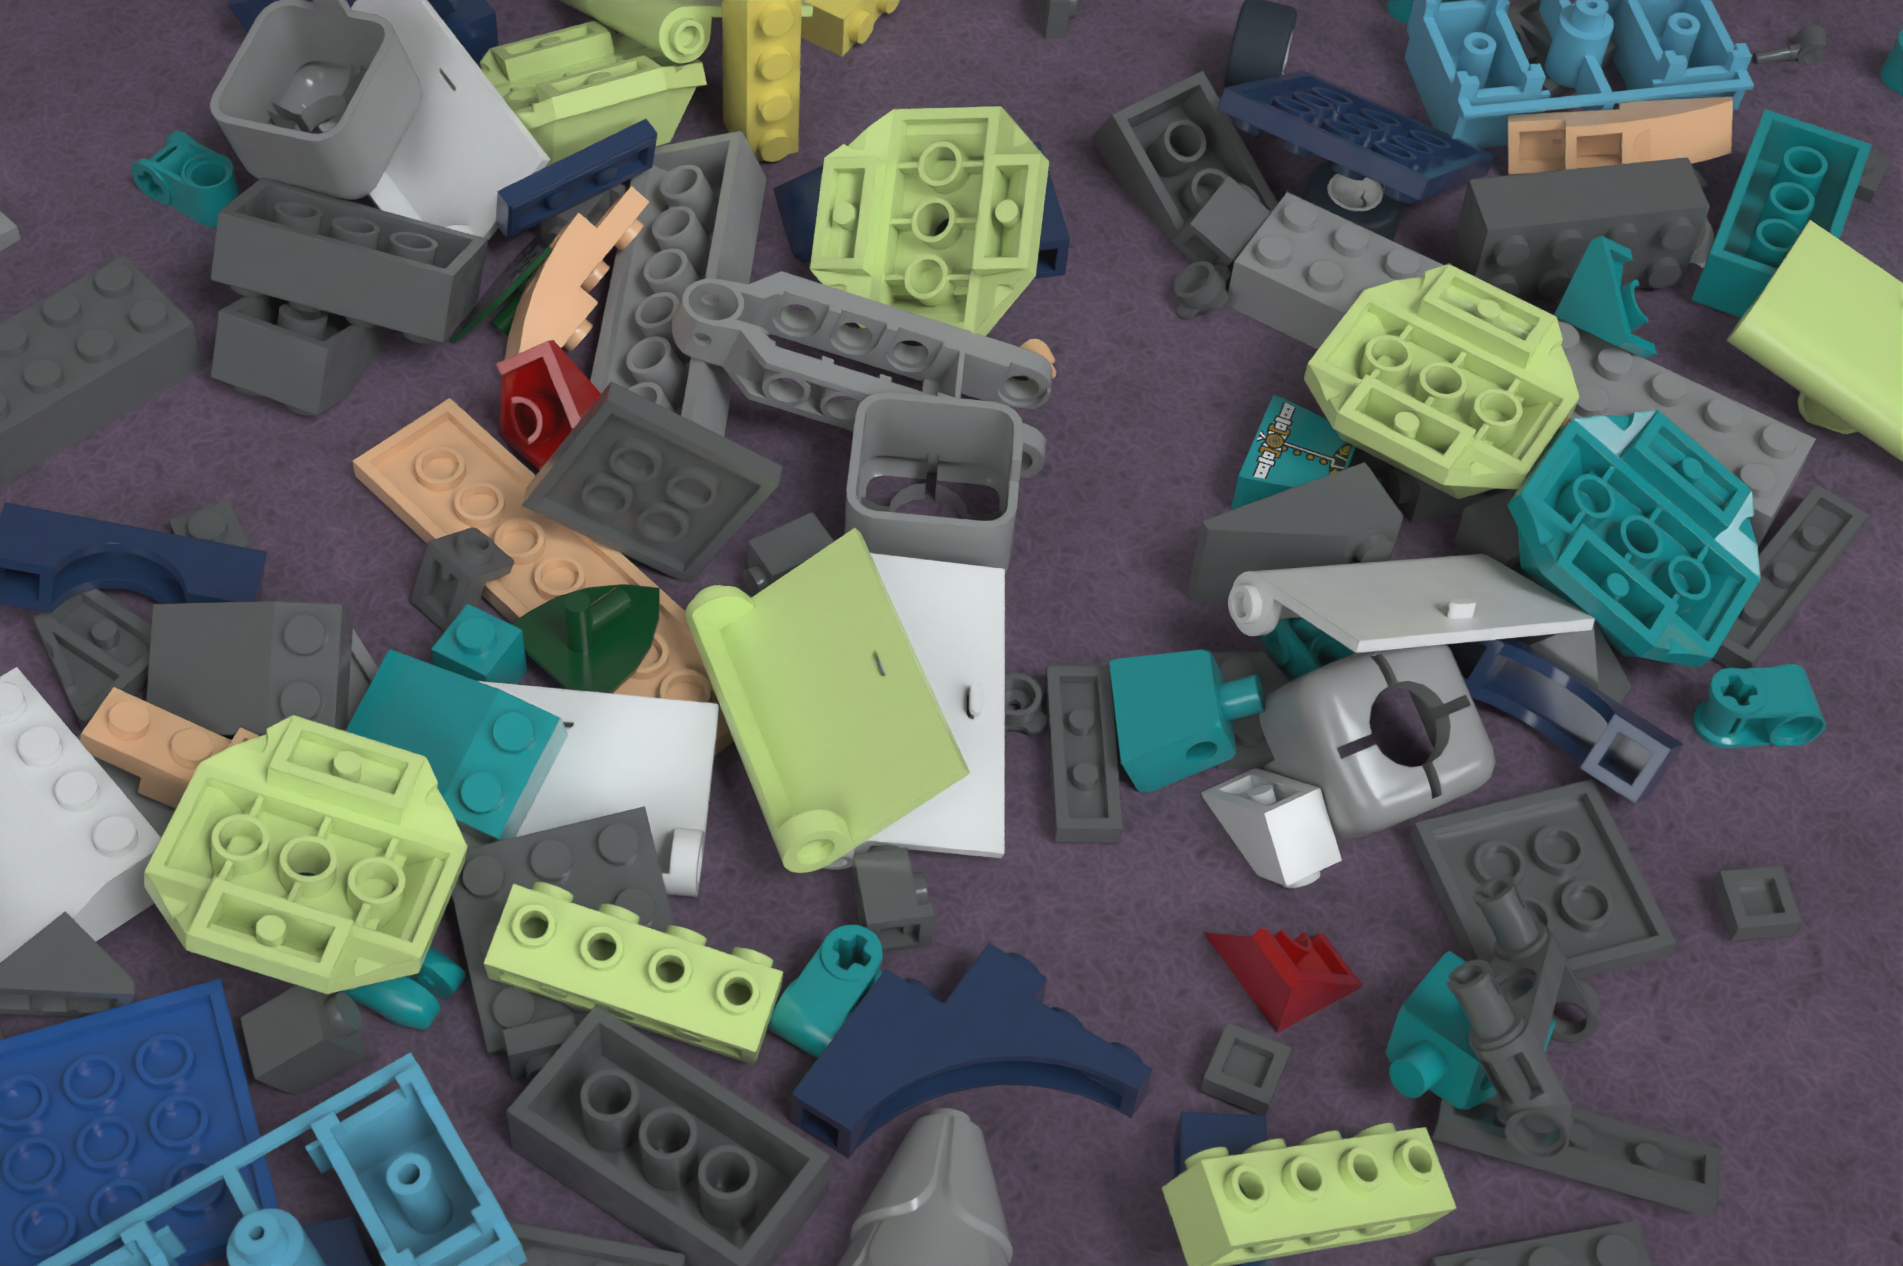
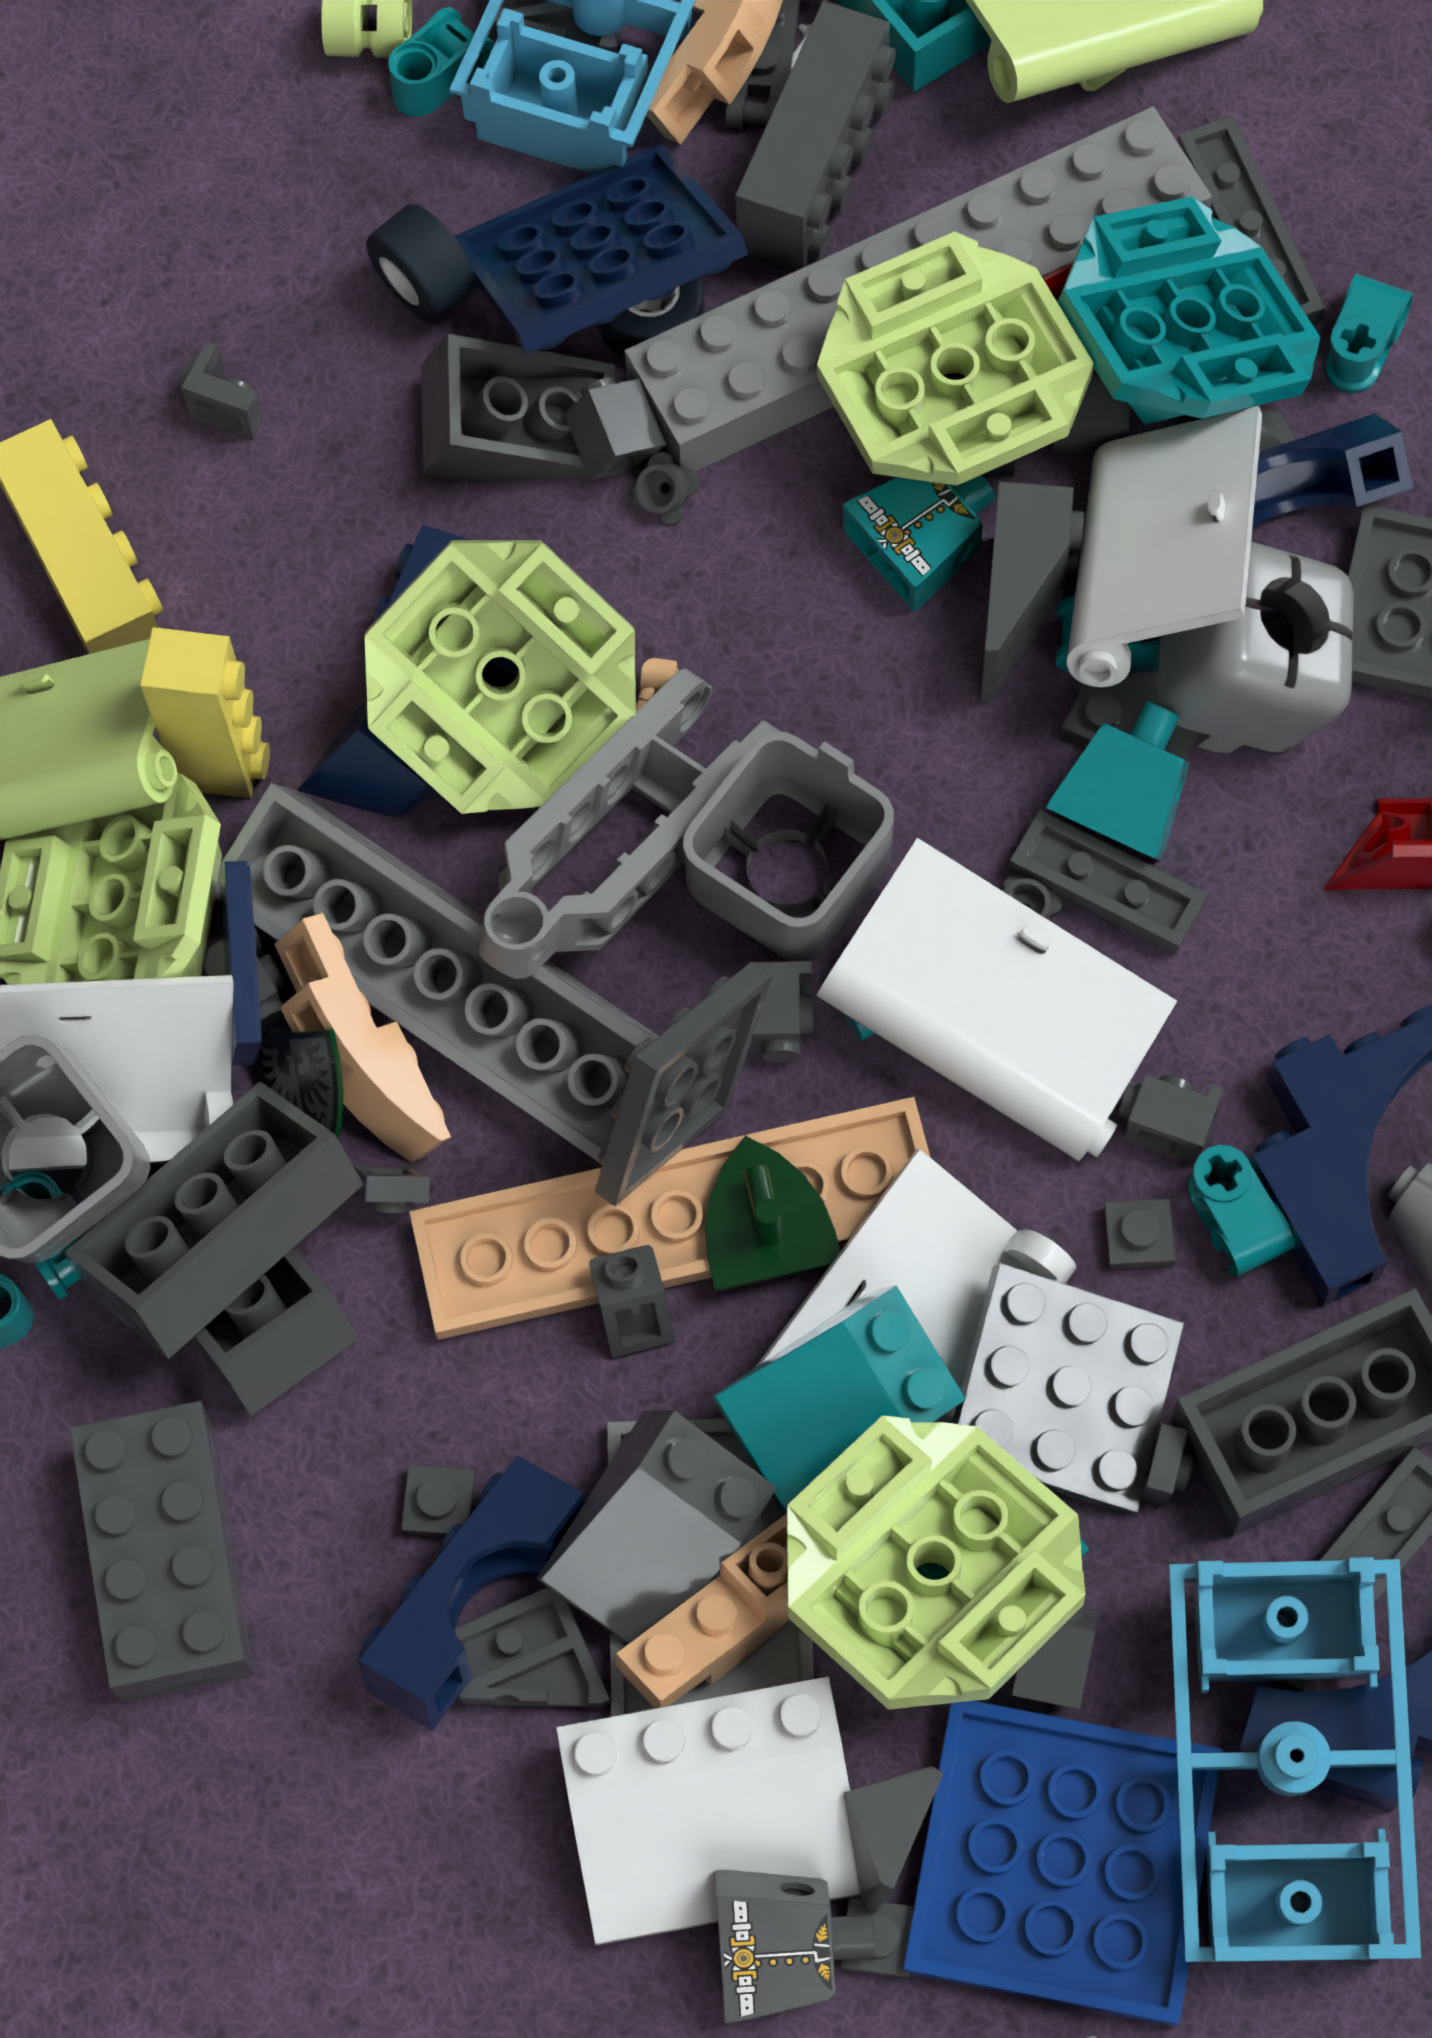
camera: 50 degrees left, 15 degrees up
(460, 374) = (392, 1187): none -> dark grey plate
(481, 648) = (734, 1326): teal brick -> none
(541, 400) = (509, 1133): red slope -> none
(634, 972) = (1160, 1354): yellowish green brick -> none
(766, 927) = (1139, 1234): none -> dark grey plate
(809, 709) = (974, 1076): yellowish green door -> none
(1276, 825) = (1265, 773): white slope -> none
(1600, 303) = (925, 175): teal slope -> none

